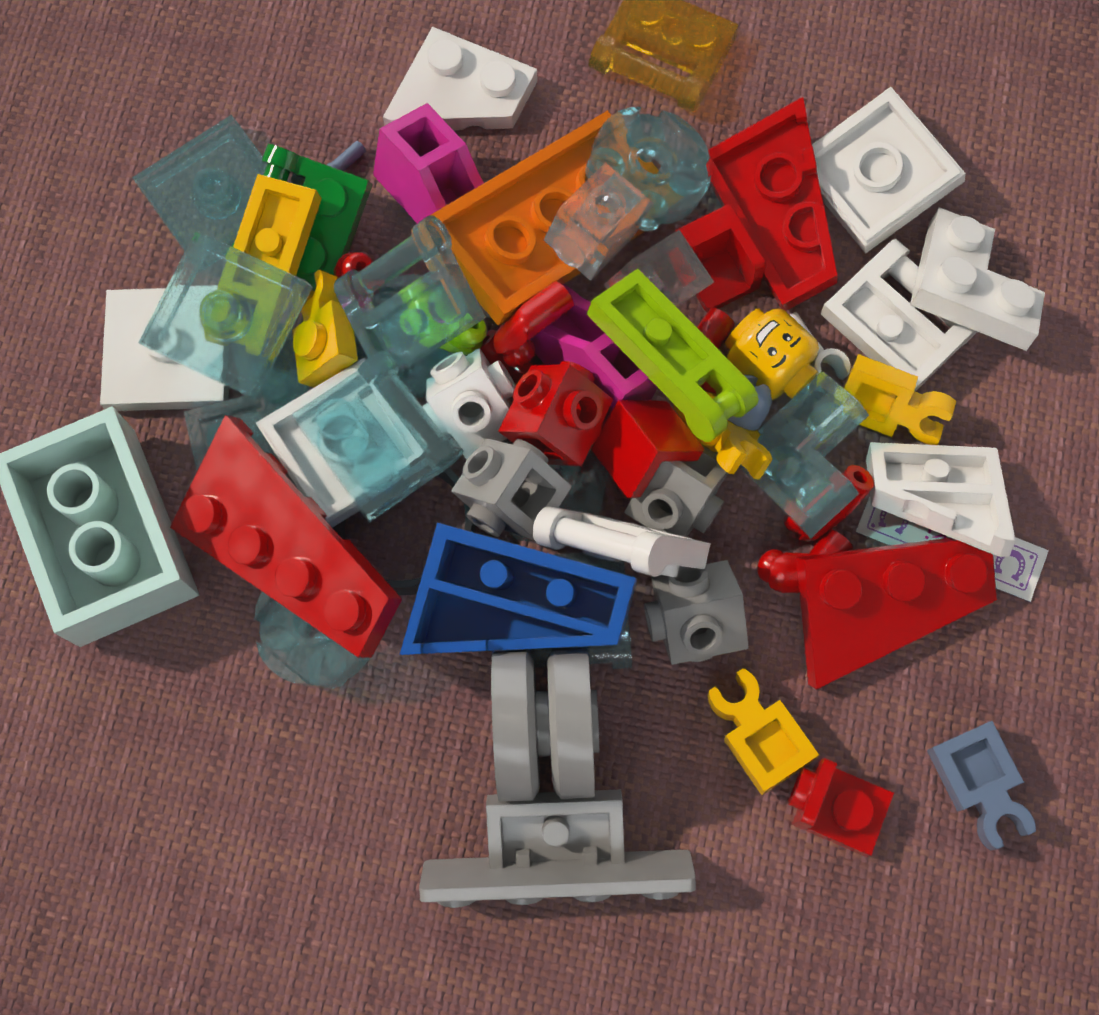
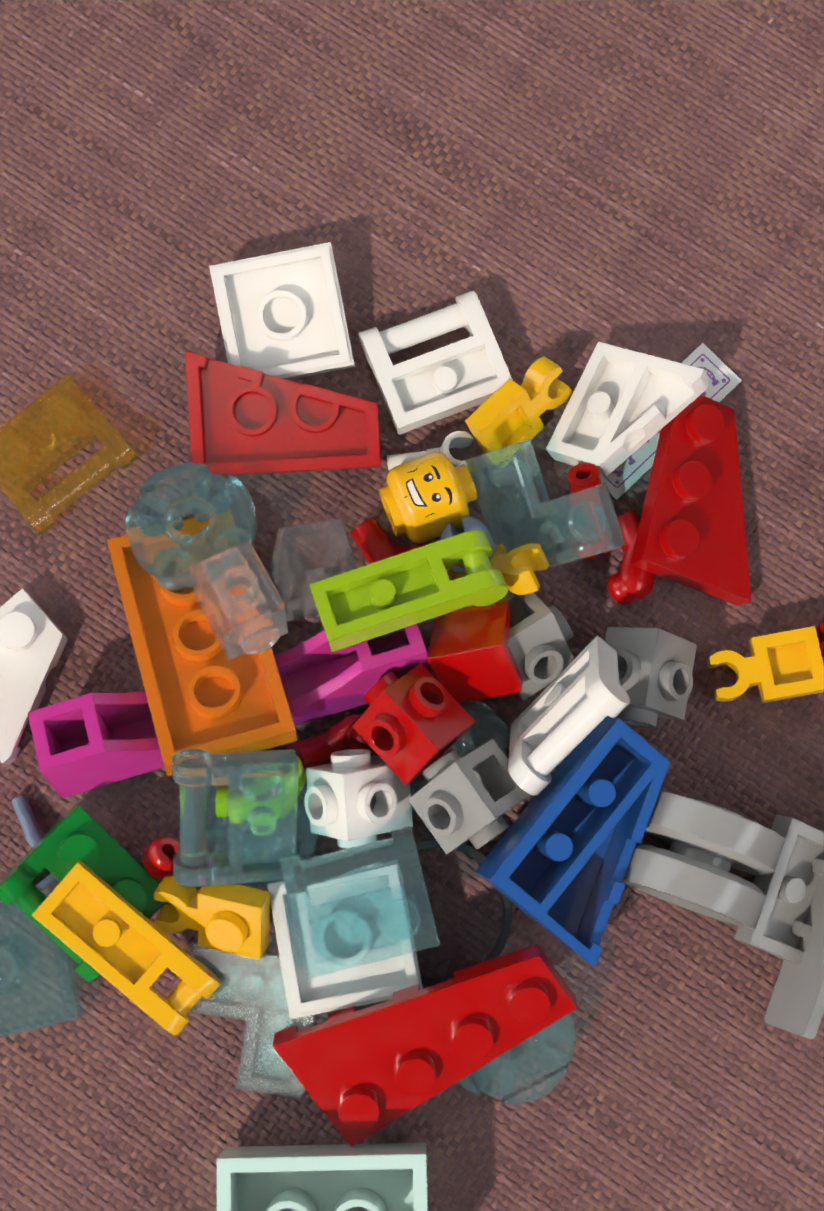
camera: 70 degrees left, 5 degrees up
(139, 377) = (151, 1086): white plate -> none
(225, 314) = (169, 1007): clear light blue plate -> none
(528, 320) = (313, 726): red arm -> none
(727, 256) = (305, 495): red panel -> none
(959, 287) = (439, 300): white plate -> none

